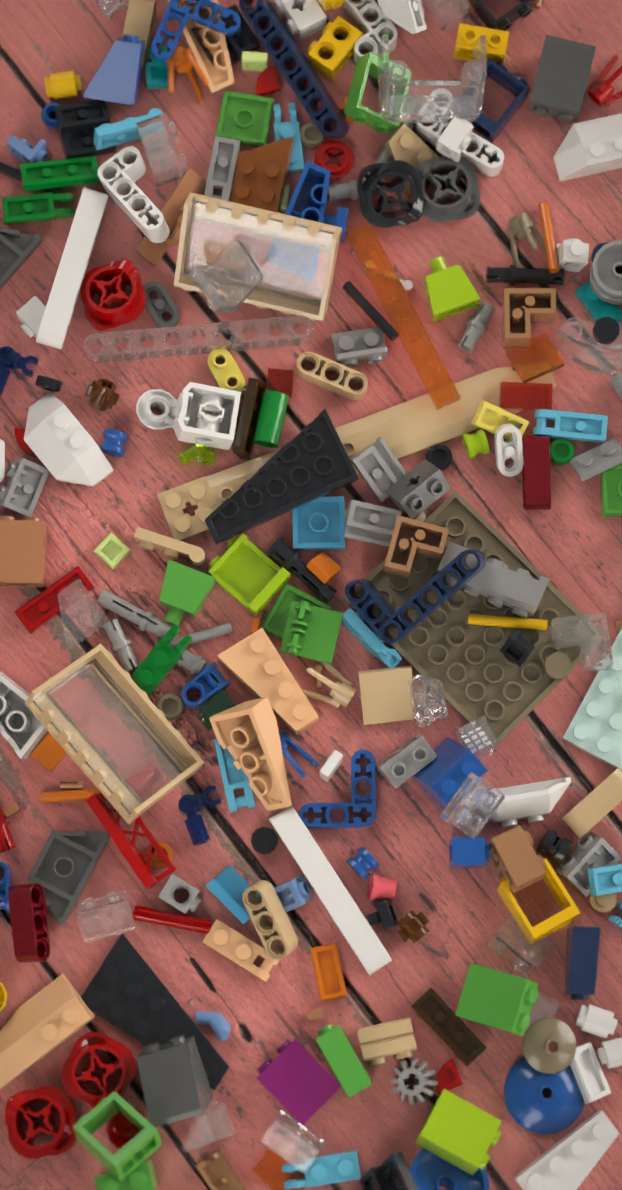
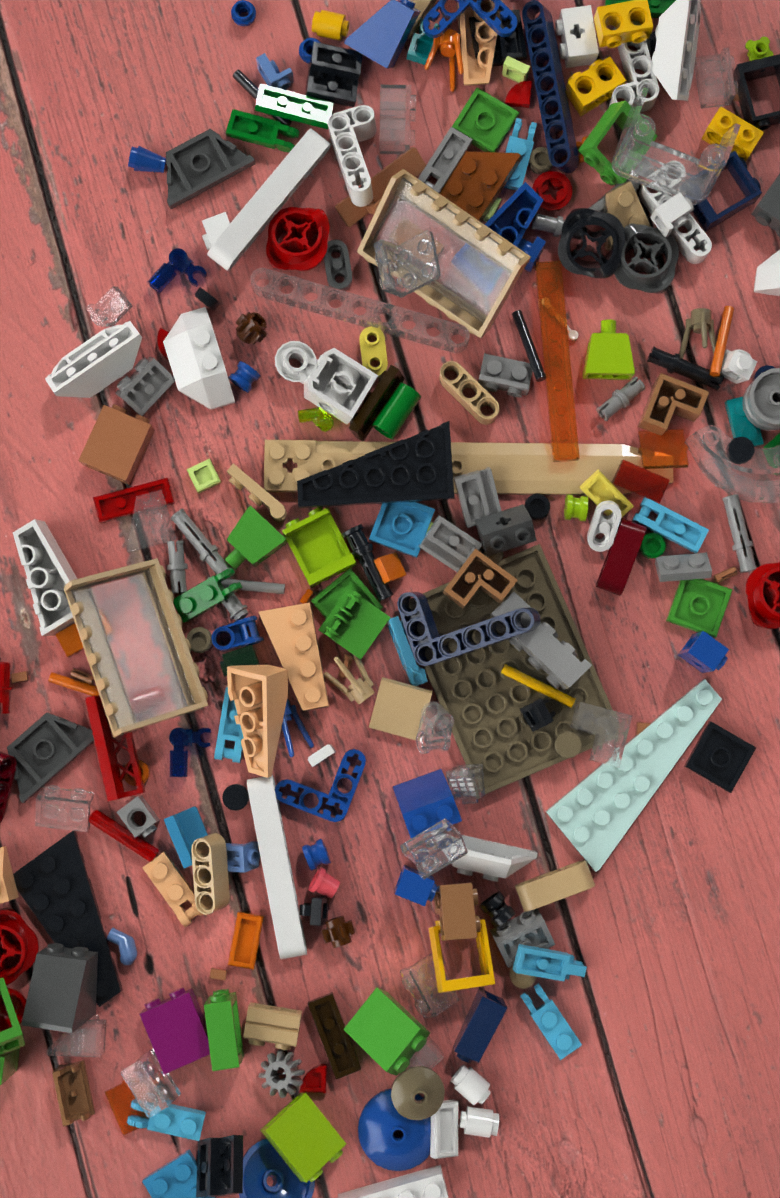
camera: 20 degrees right, 5 degrees up
(120, 132) = (363, 89): medium azure plate -> none
(280, 381) = (419, 379): clear red tile -> none
(406, 760) = (393, 777): light grey bracket -> none

